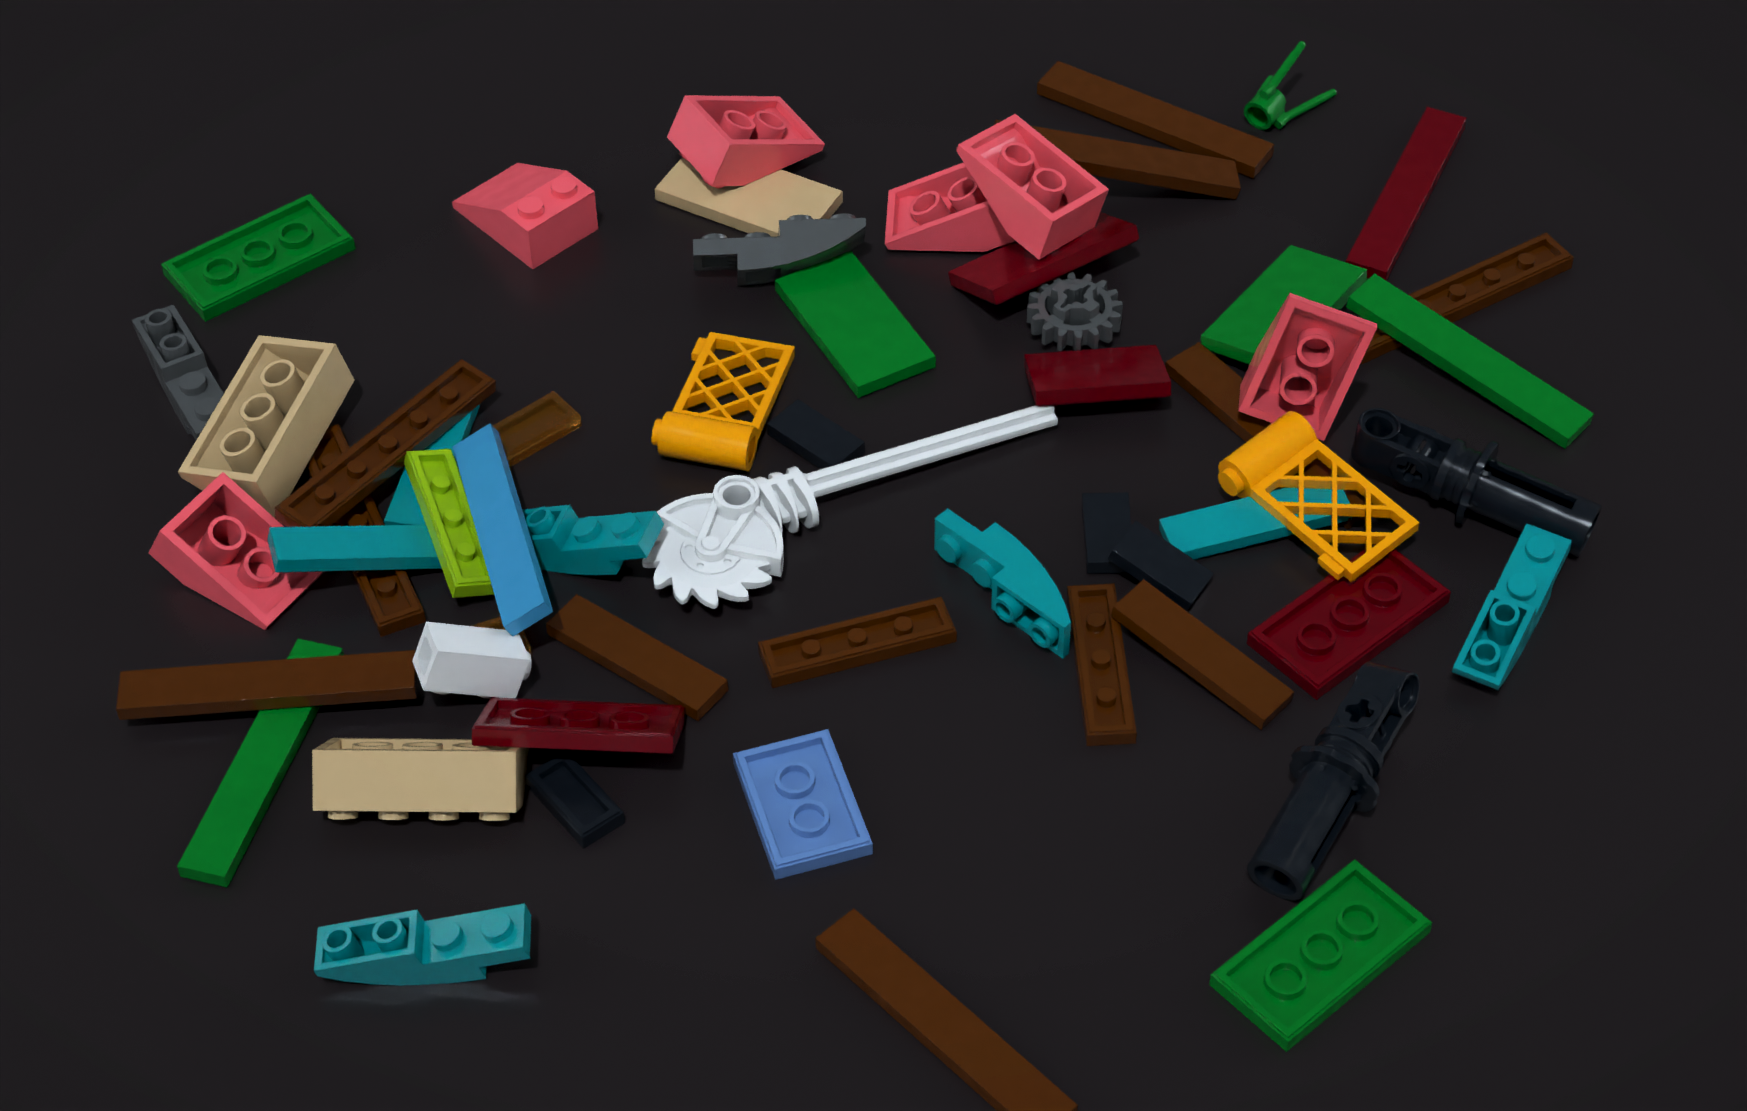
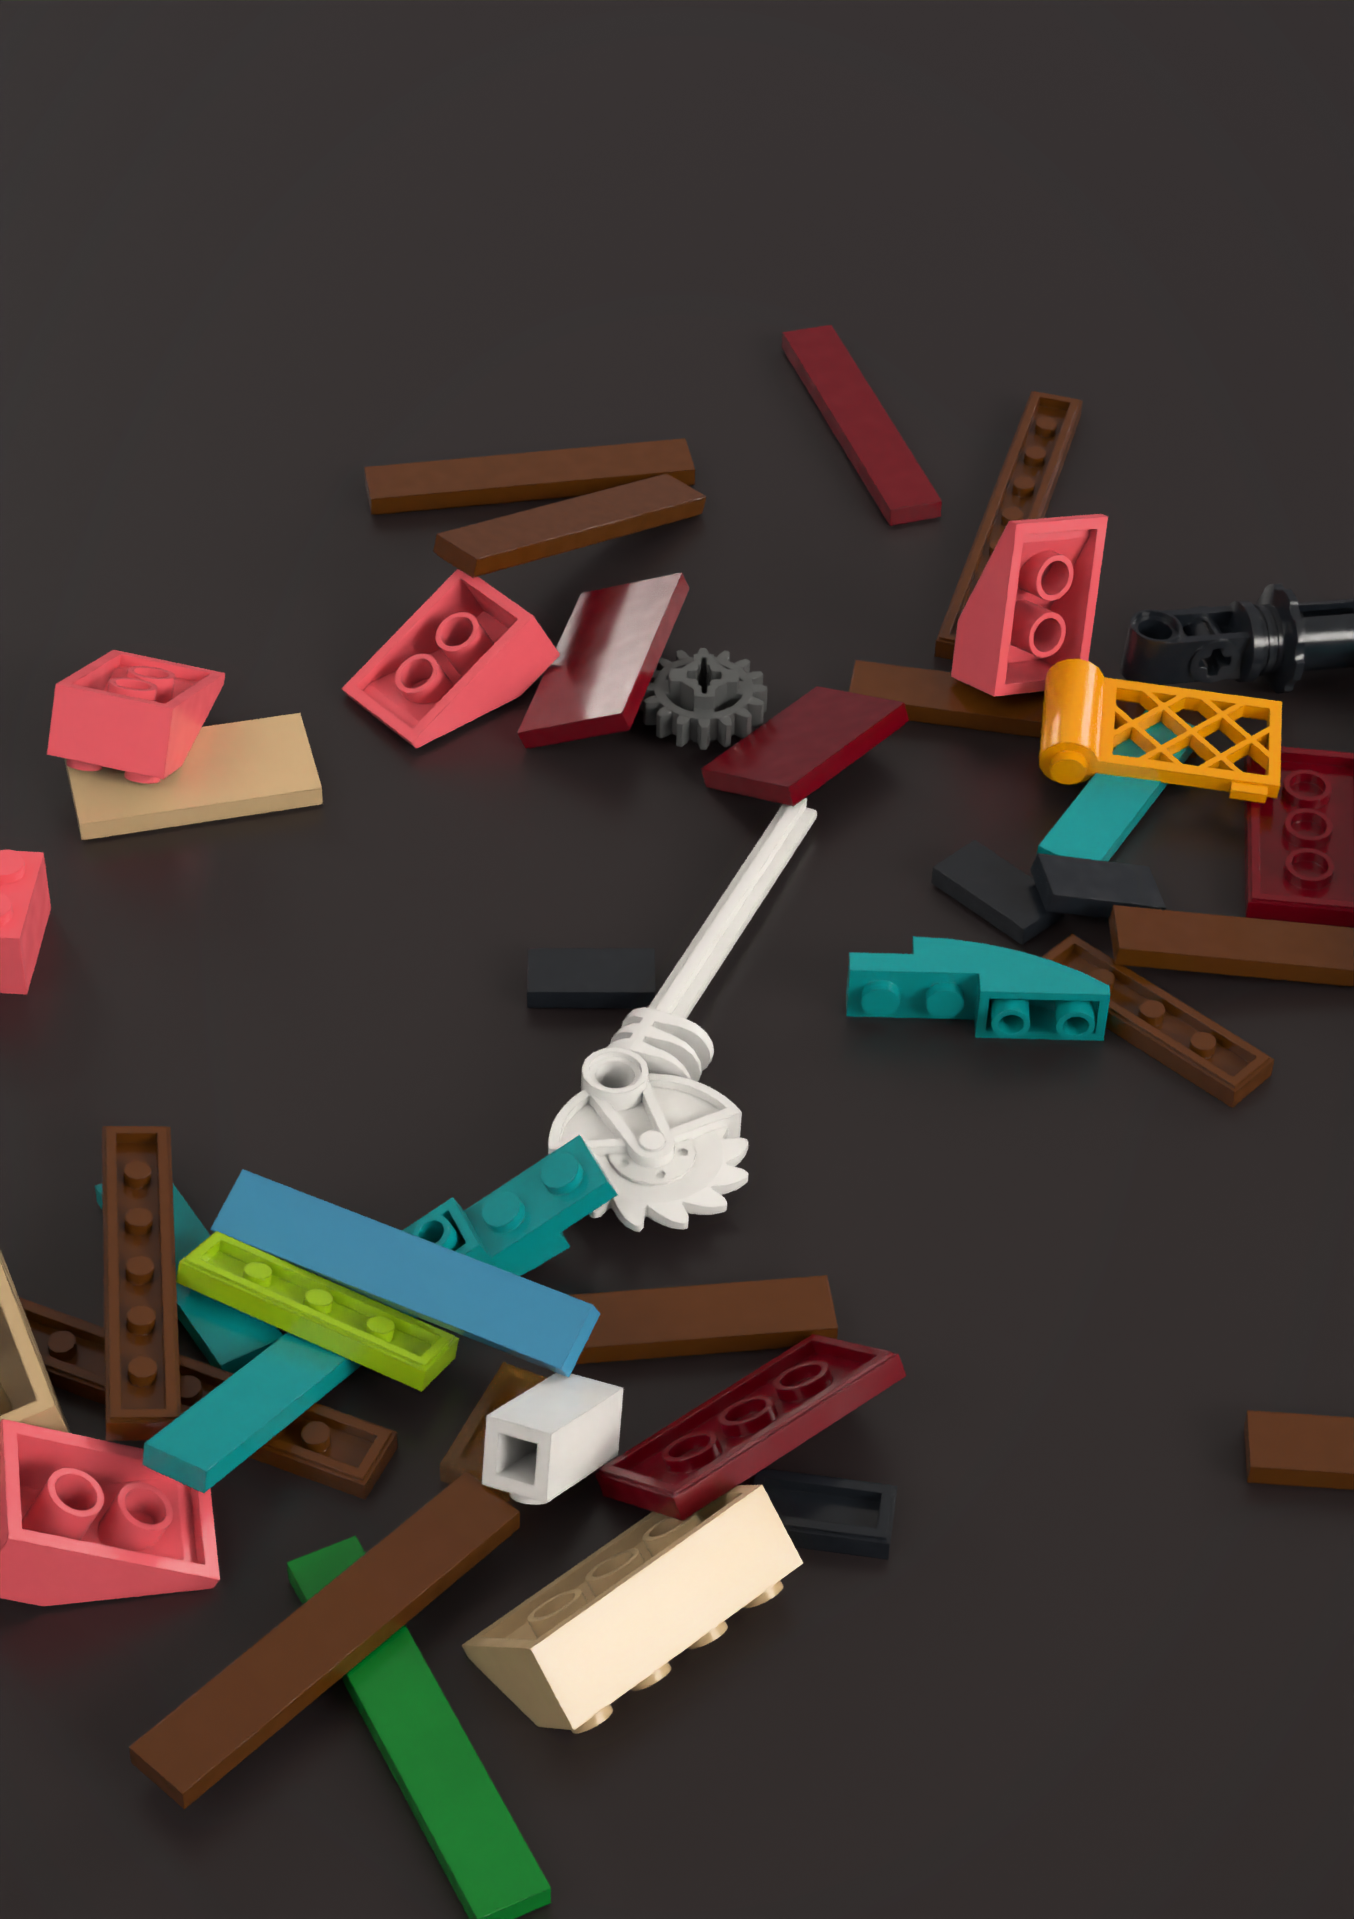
camera: 45 degrees left, 5 degrees down
(419, 952) = (888, 1783): teal slope -> none
(536, 427) = (259, 1141): clear orange tile -> none
(713, 434) = (478, 1039): light orange piece -> none
(766, 258) = (321, 807): dark grey slope -> none
(802, 804) = (1053, 1349): medium blue tile -> none
(855, 324) = (480, 840): green tile -> none
(856, 642) = (895, 1155): reddish brown tile -> none
(1032, 185) = (560, 579): coral slope -> none
(1269, 103) = (633, 406): green plant -> none
(1295, 272) = (894, 583): green tile -> none
(1470, 361) = (1138, 539): green tile -> none

